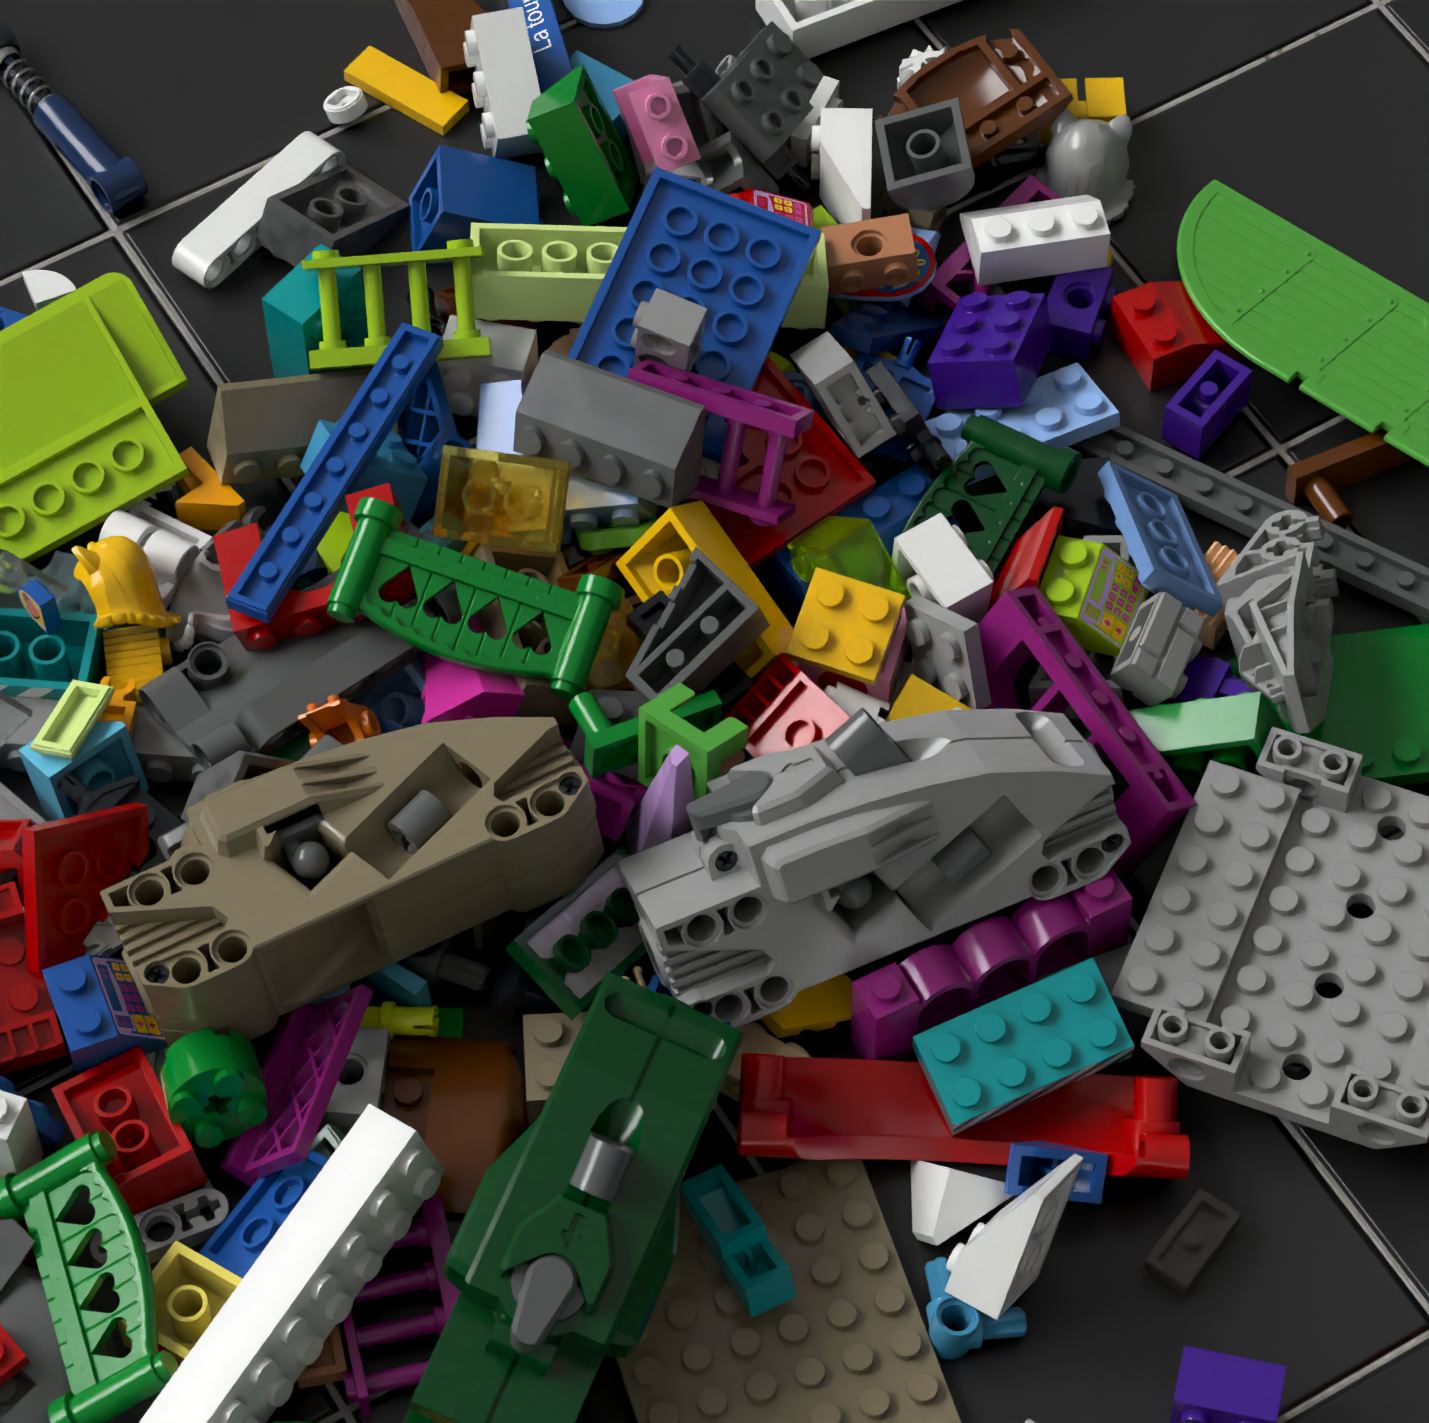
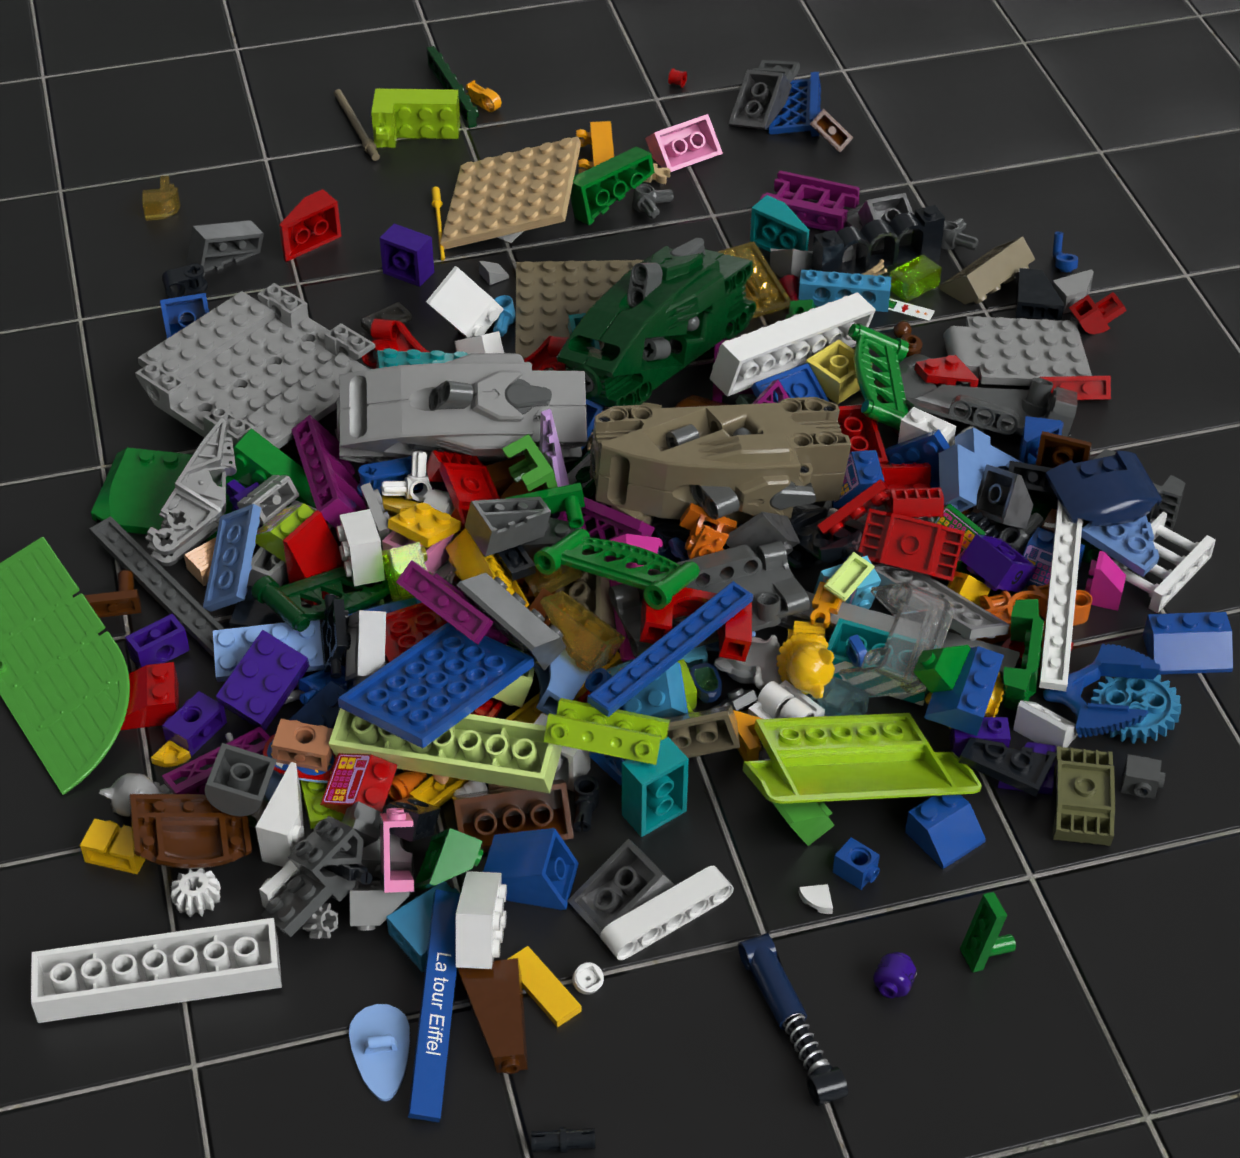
camera: 165 degrees left, 10 degrees down
(668, 330) = (458, 637): light grey brick -> none
(1035, 1159) = (435, 338): blue slope -> none
(1036, 239) = (192, 737): white slope -> none

